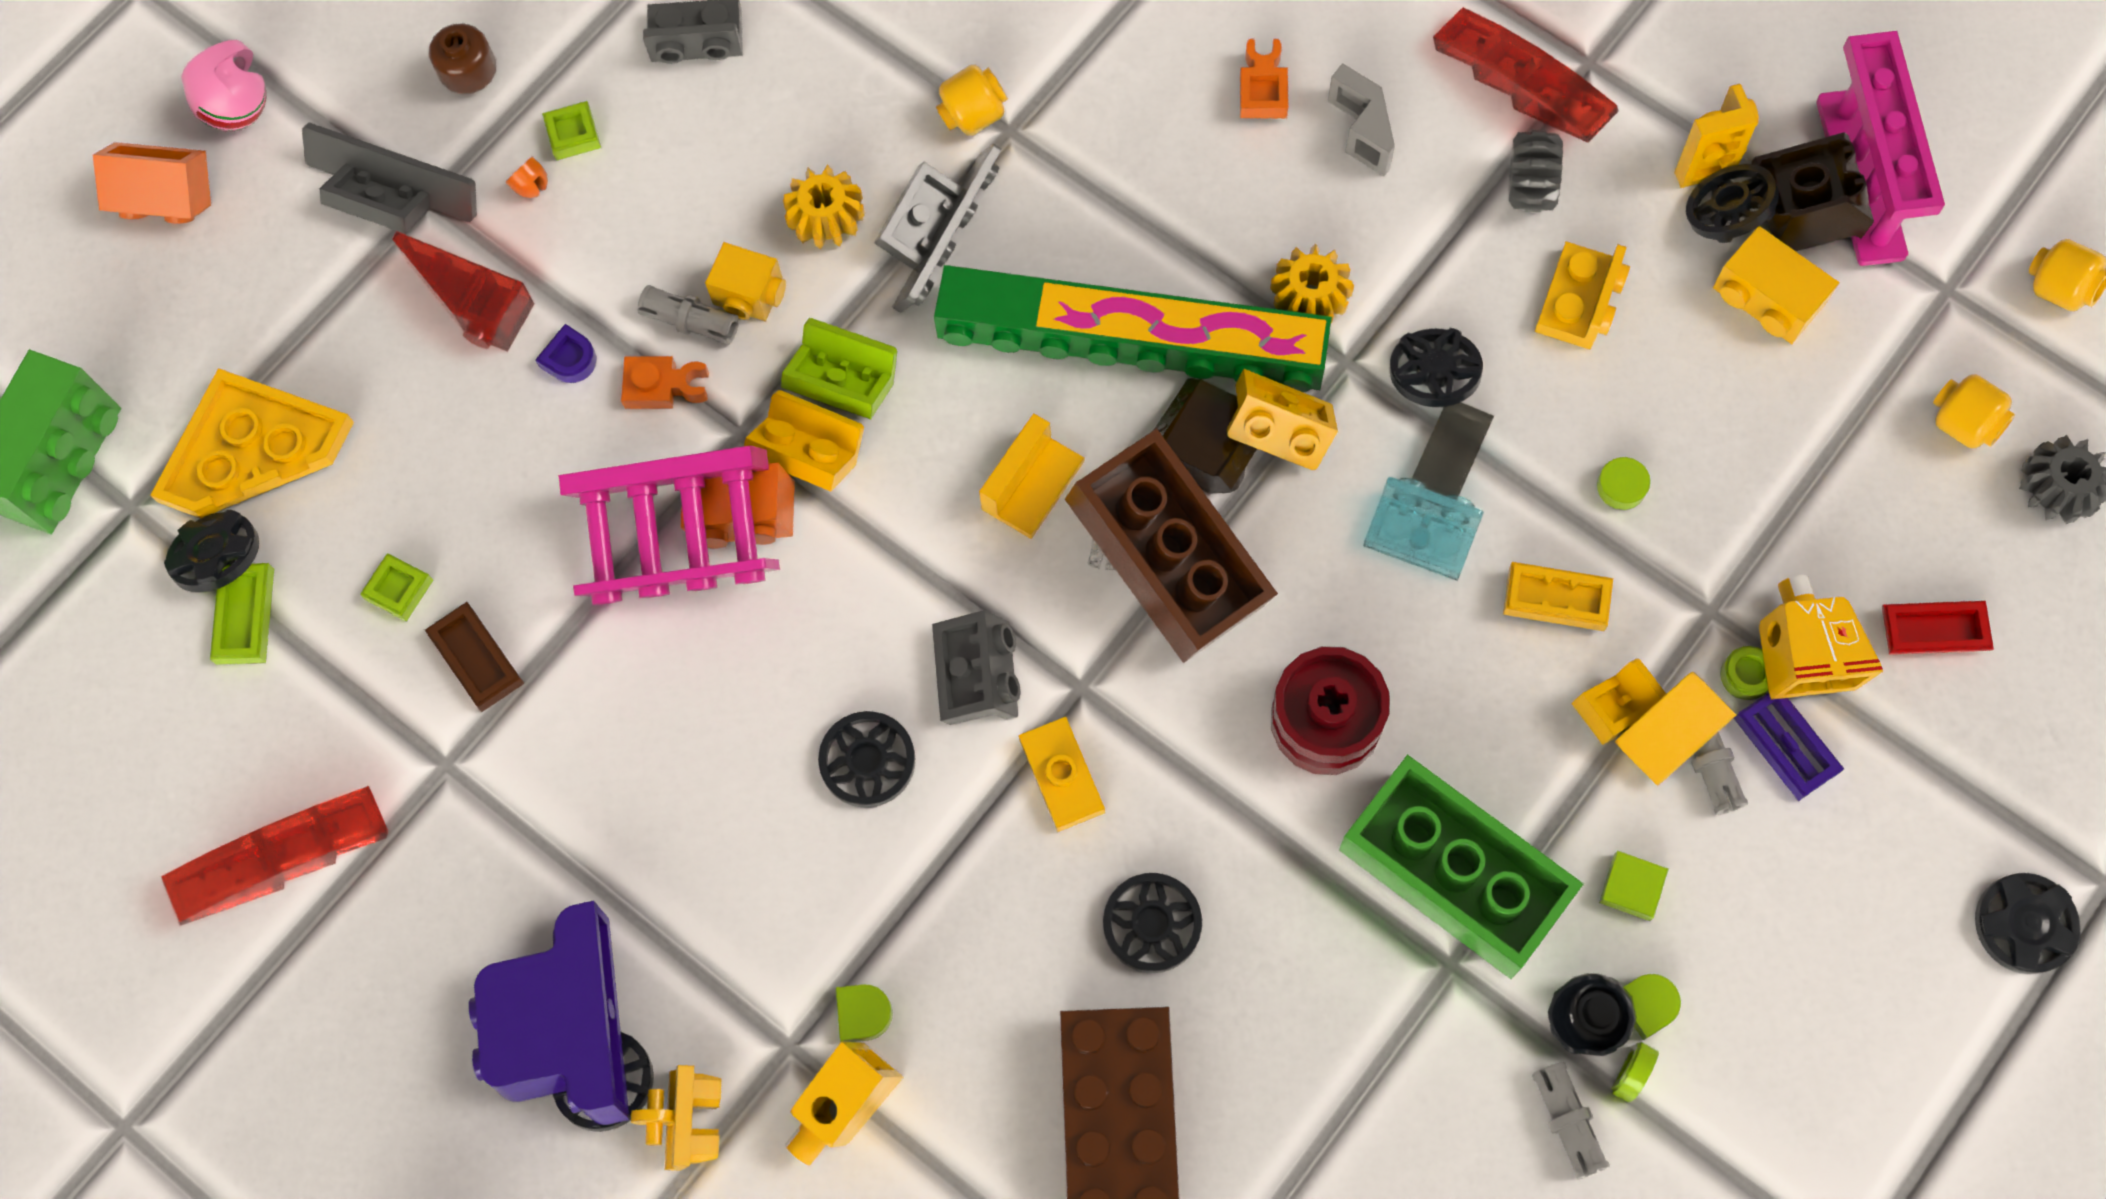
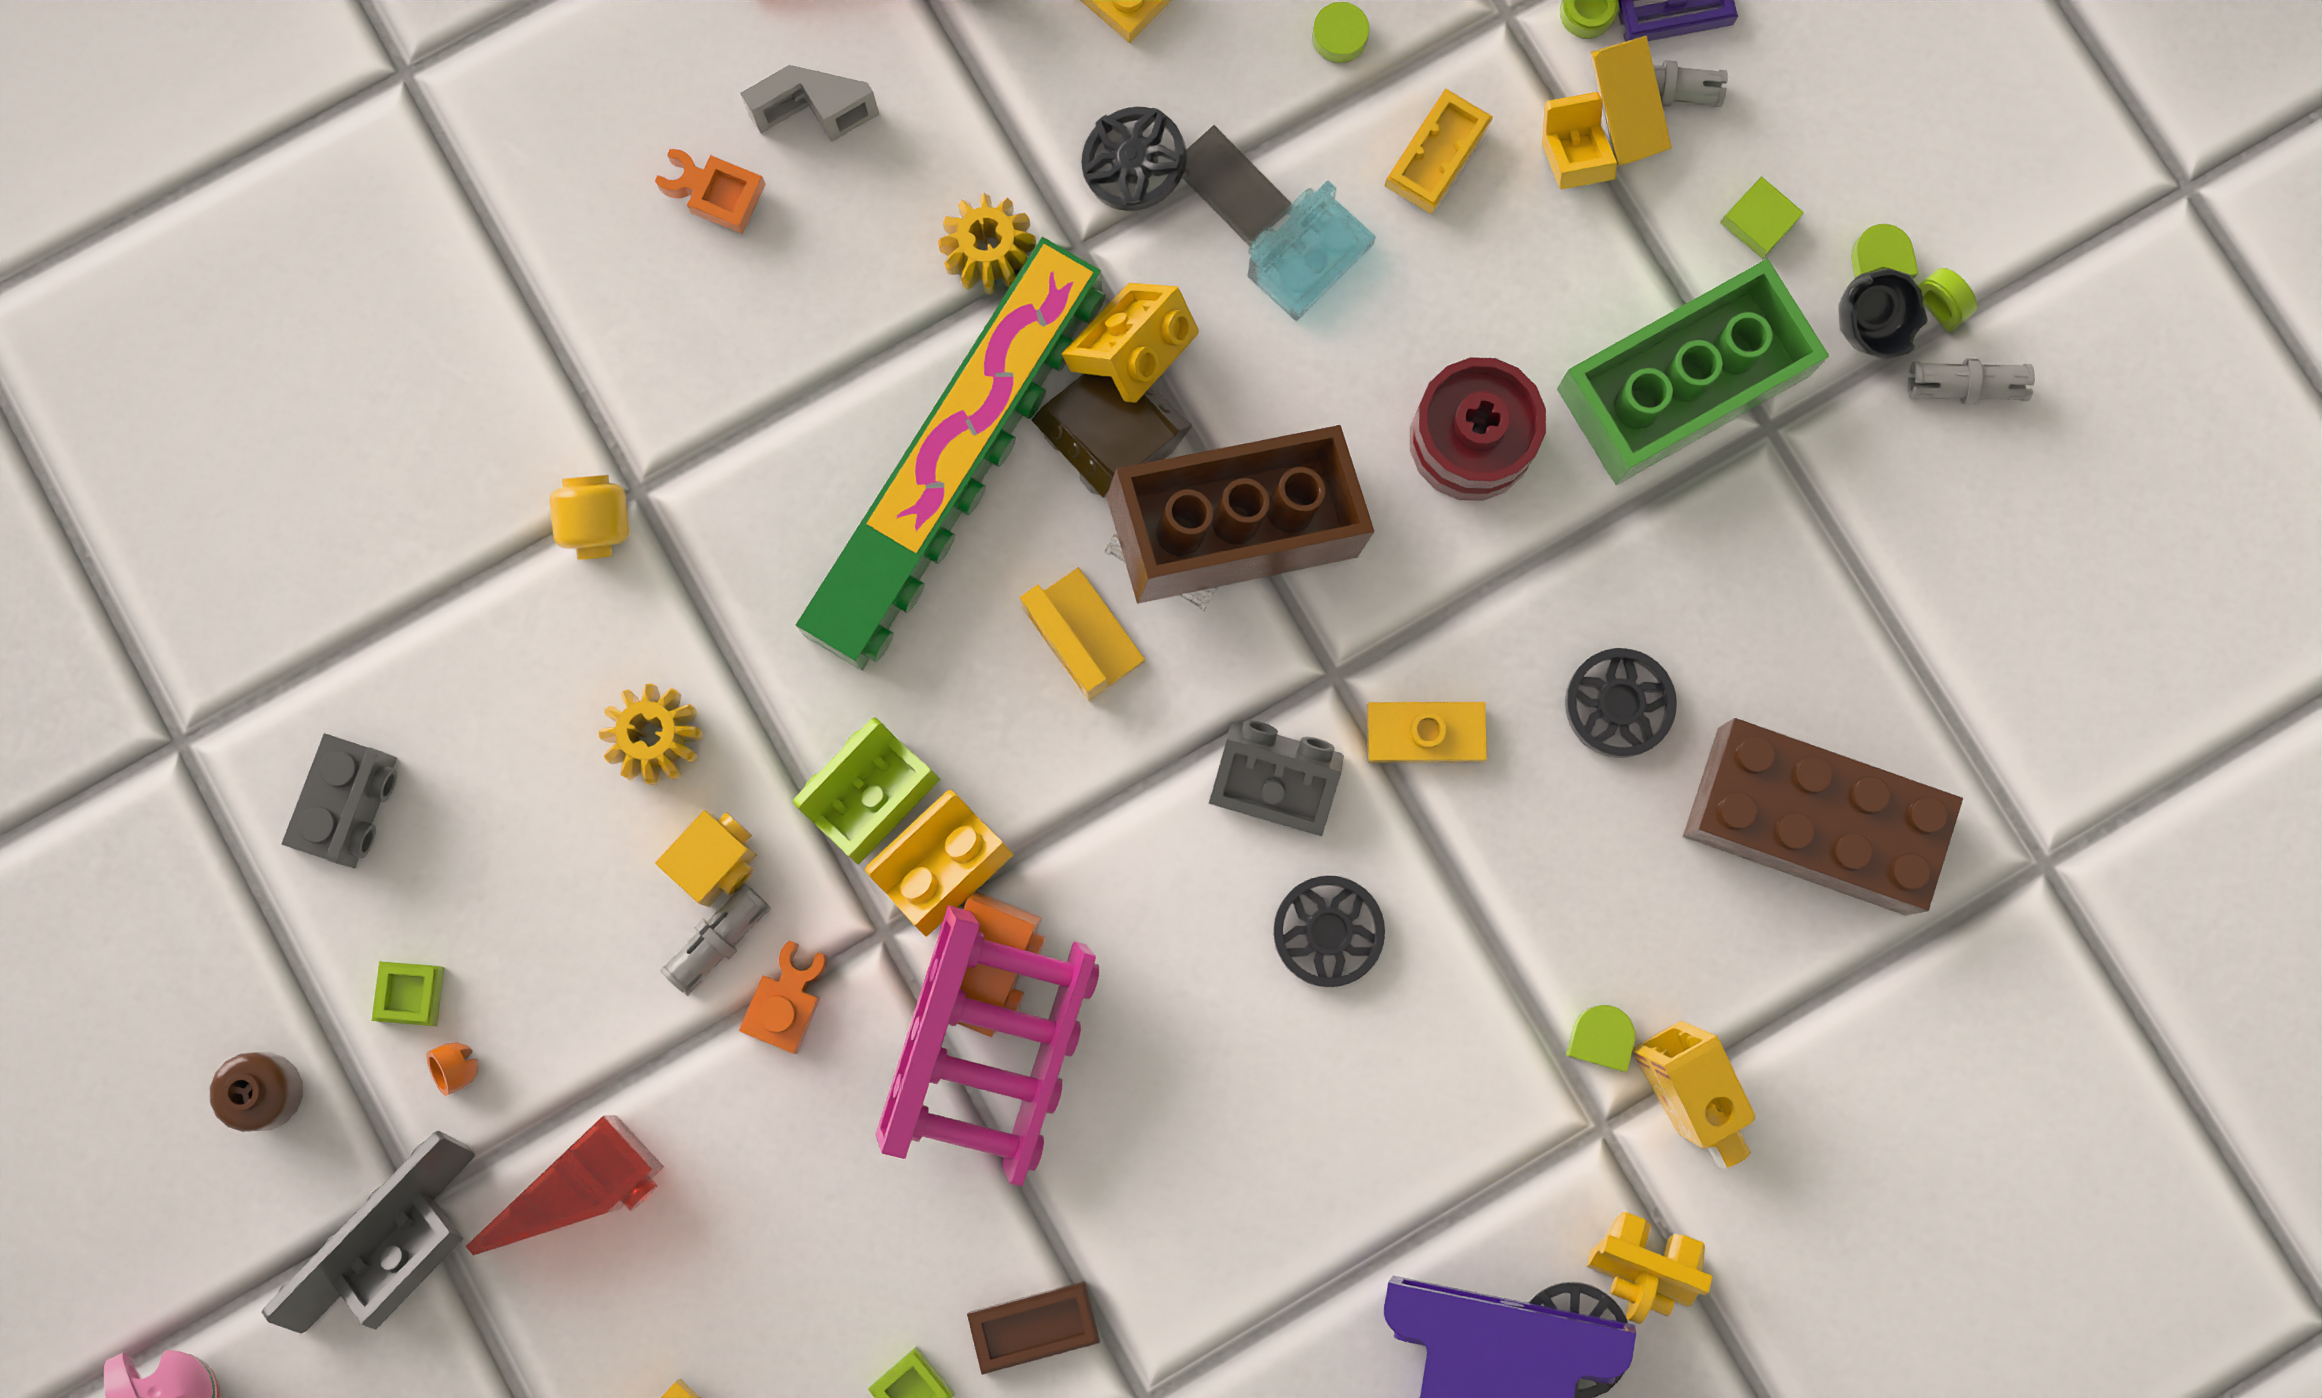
camera: 75 degrees left, 10 degrees up
(568, 356) = (705, 1096): dark purple tile -> none
(927, 218) = (723, 620): bracket -> none

